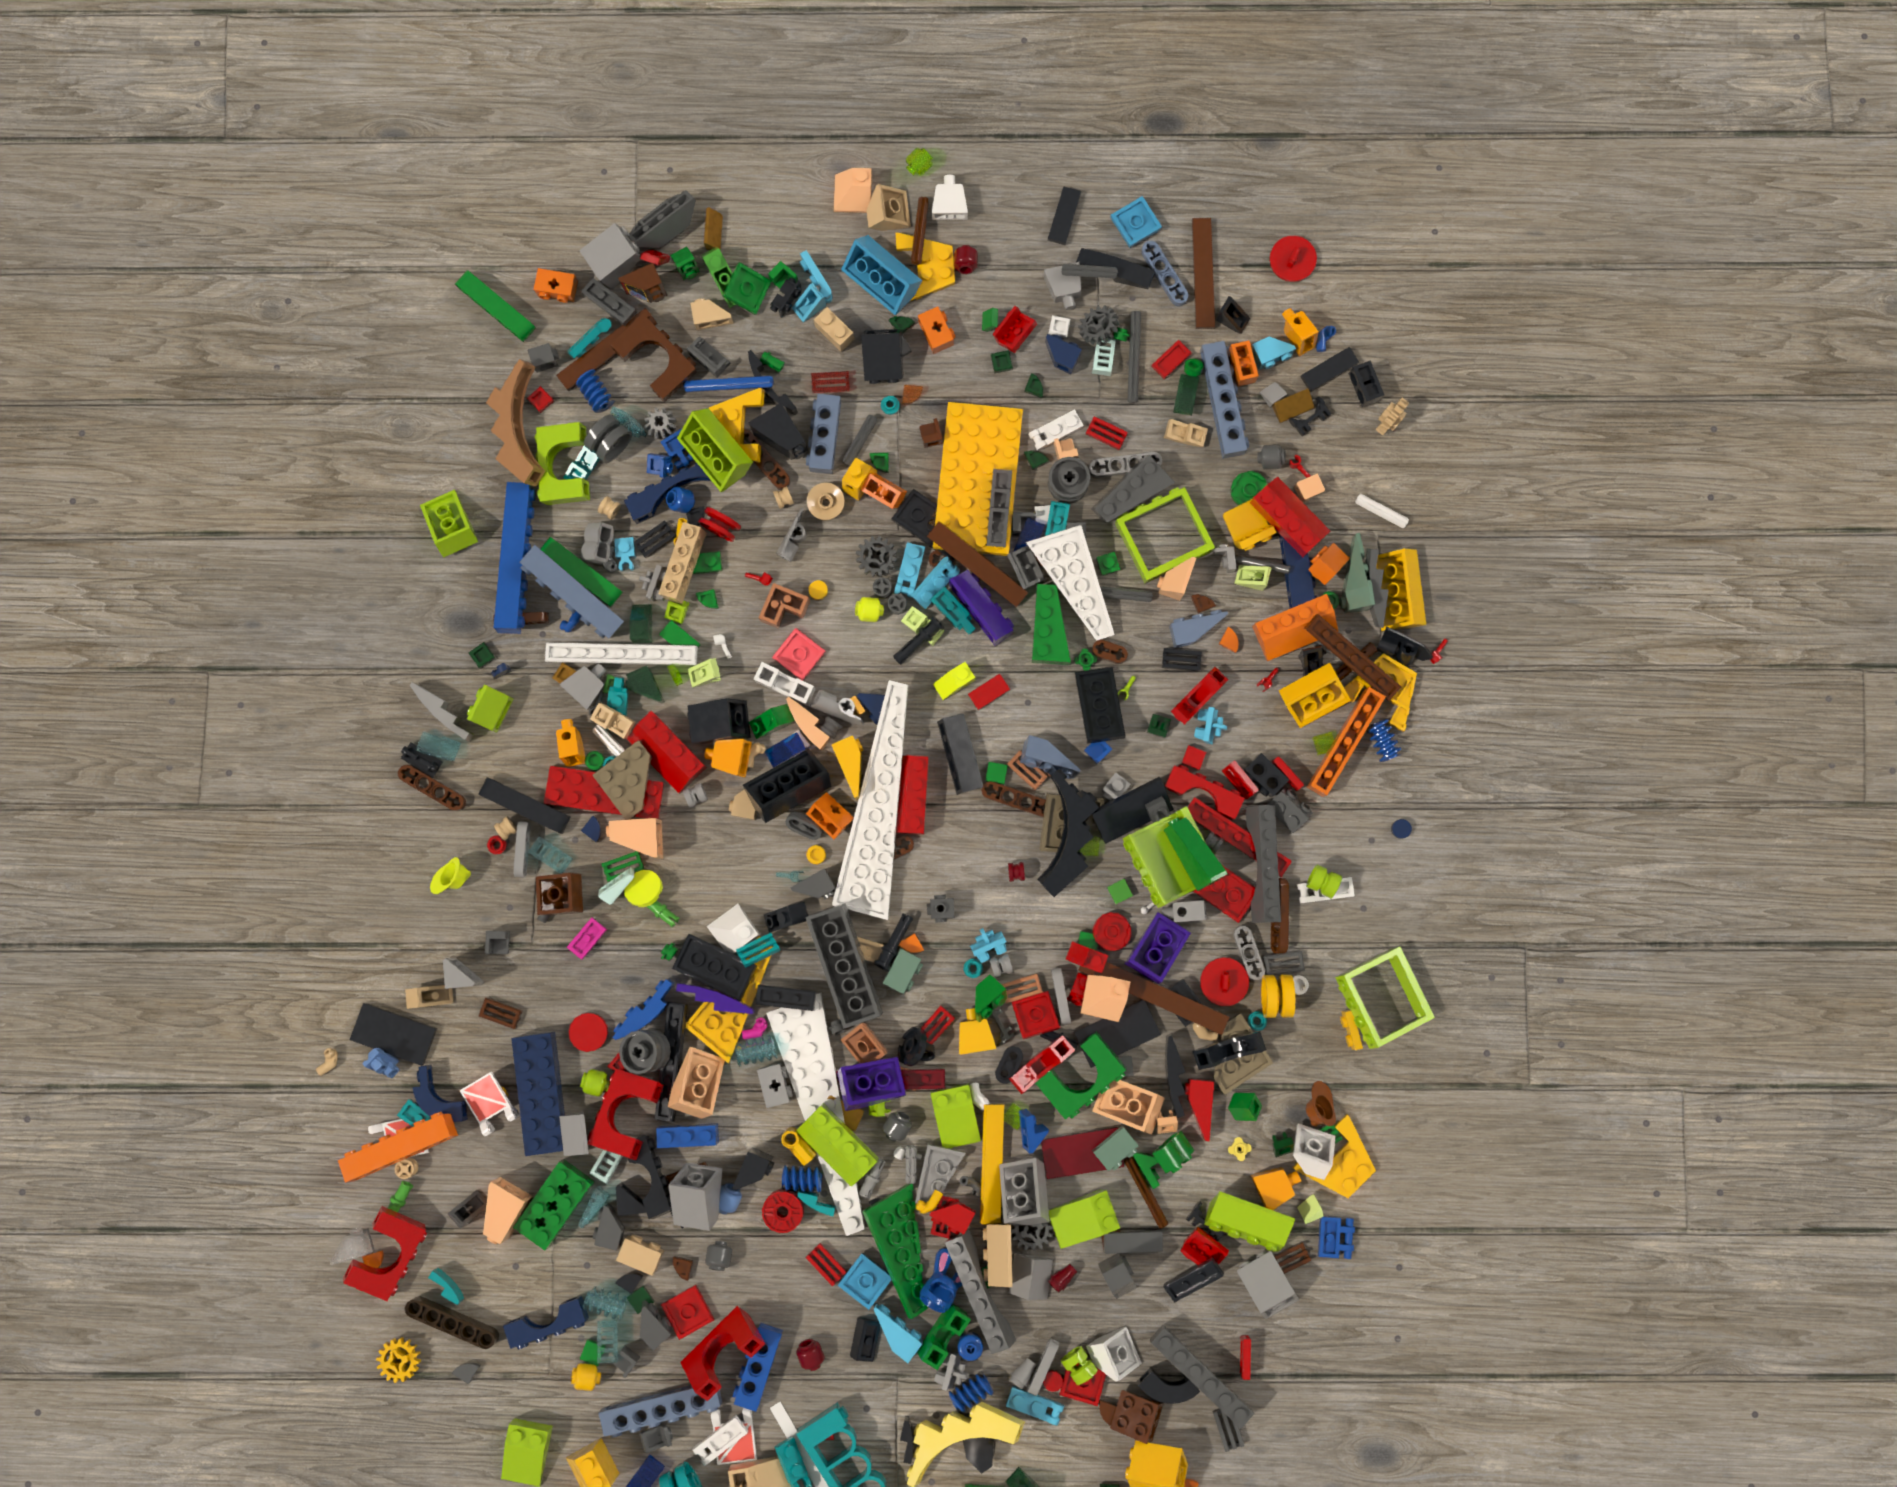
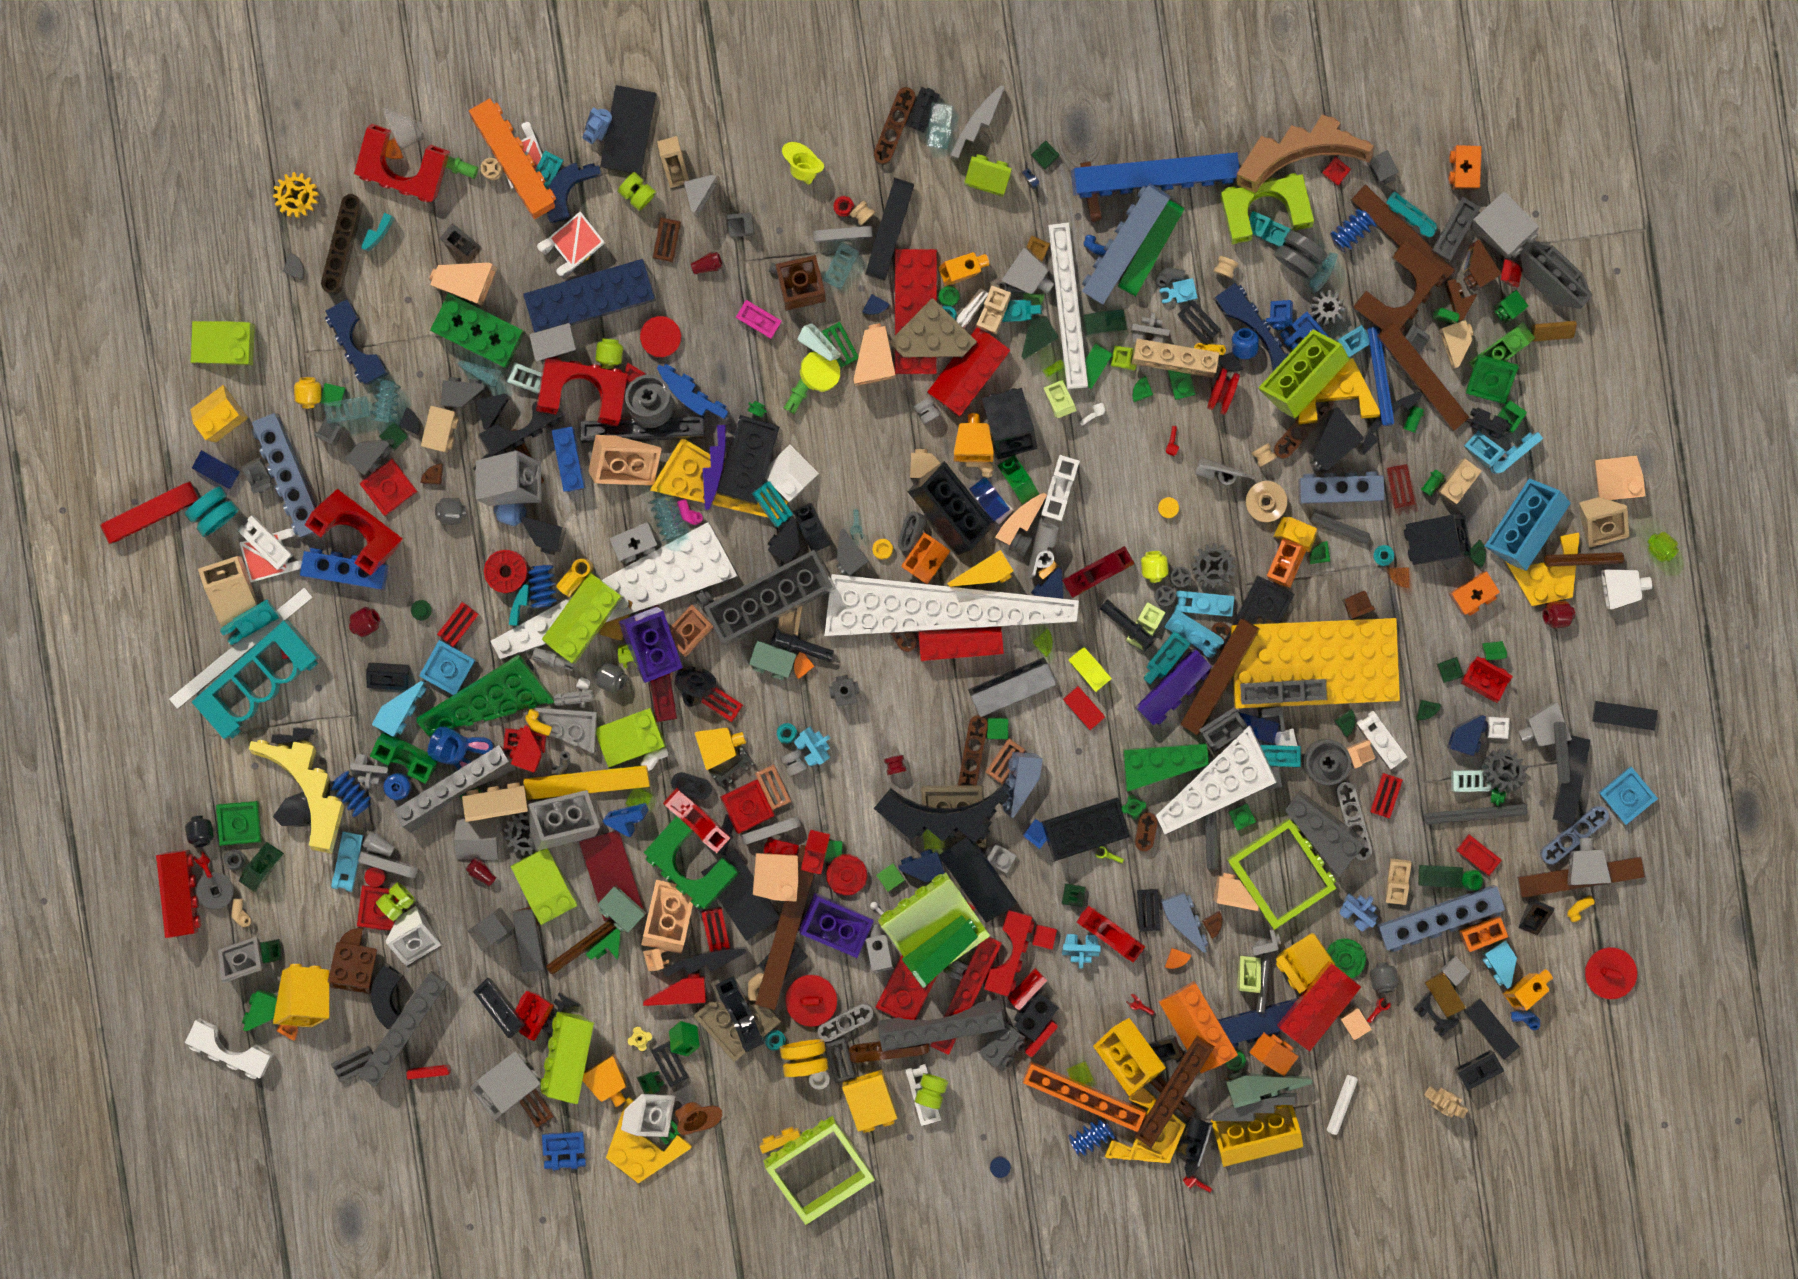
camera: 85 degrees right, 5 degrees up
(330, 1061) = (592, 68): tan arm -> none
(448, 523) = (1184, 95): lime slope -> none
(454, 1029) = (643, 194): none -> lime wheel
(495, 306) = (1433, 104): green beam -> none
(527, 976) = (708, 263): none -> dark red cone
(597, 541) = (1184, 261): light grey brick -> none
(676, 308) = (1458, 305): none -> reddish brown slope
(683, 319) = (1445, 316): none -> green tile
(693, 401) = (1354, 340): none -> medium azure slope
(734, 347) = (1422, 376): none -> reddish brown tile
(781, 601) = (1150, 471): nougat brick -> none
(786, 997) = (727, 541): black tile -> none
(797, 943) = (787, 543): none -> black slope
(799, 654) = (1095, 497): coral tile -> none
(807, 1297) = (421, 610): none -> dark green plate
(831, 353) = (1433, 482): none -> green pin
(866, 659) = (1098, 571): none -> dark red arch
(924, 719) = (1044, 642): none -> clear neon green tile
(988, 997) = (759, 754): green slope -> none
(1114, 858) = (923, 867): none -> dark blue slope
(1157, 809) = (982, 905): dark grey tile -> none
(1161, 1061) = (719, 945): none -> red tile
(1174, 1152) = (626, 970): green brick -> none
(1194, 263) = (1587, 865): none -> light grey torso
(1205, 469) = (1360, 907): none -> medium blue hips
(1229, 277) = (1579, 906): none -> yellow arm
(1282, 1118) = (678, 1079): none -> black tile
(1310, 1209) = (588, 1120): yellowish green slope -> none
(1325, 940) = (870, 1101): none -> yellow slope

